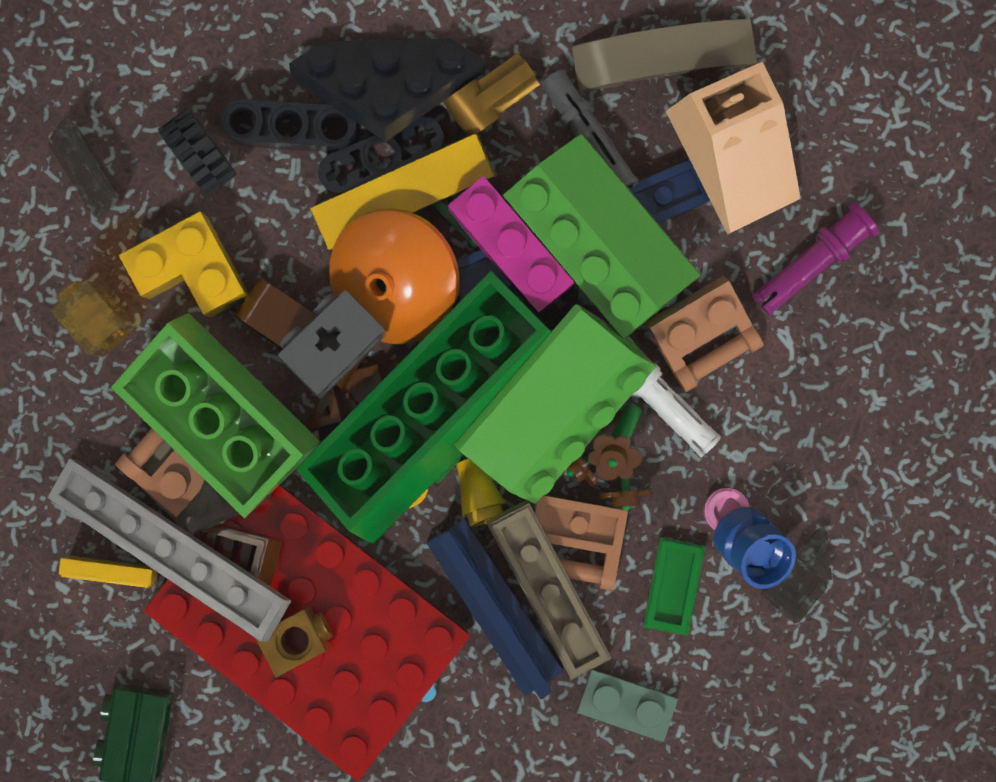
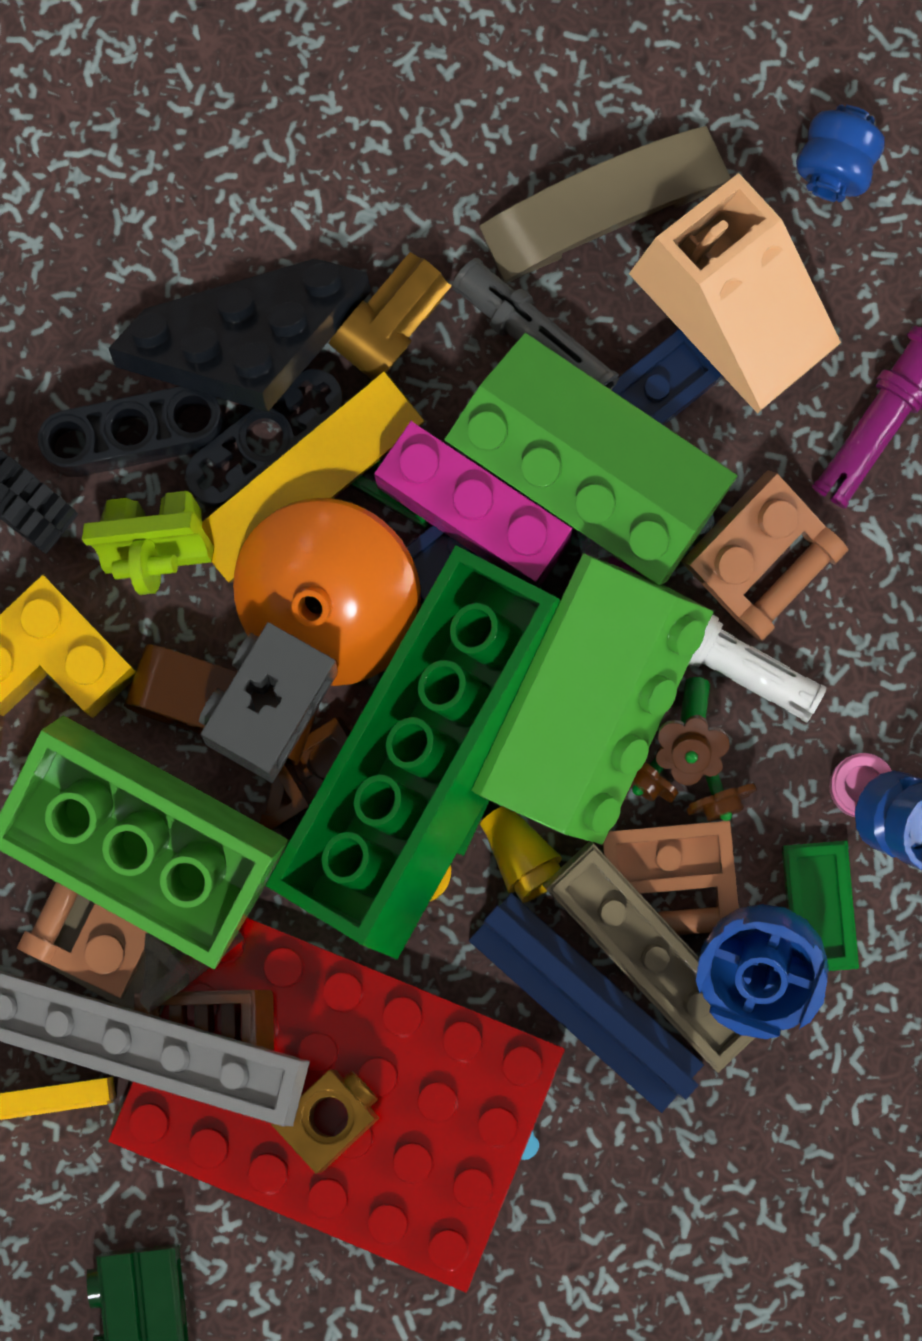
camera: 15 degrees left, 5 degrees down
(279, 210) = (149, 545): none -> lime hips
(620, 621) = (763, 971): none -> blue cylinder
(627, 705) = (803, 1087): sand green plate -> none
(838, 65) = (840, 153): none -> blue piece

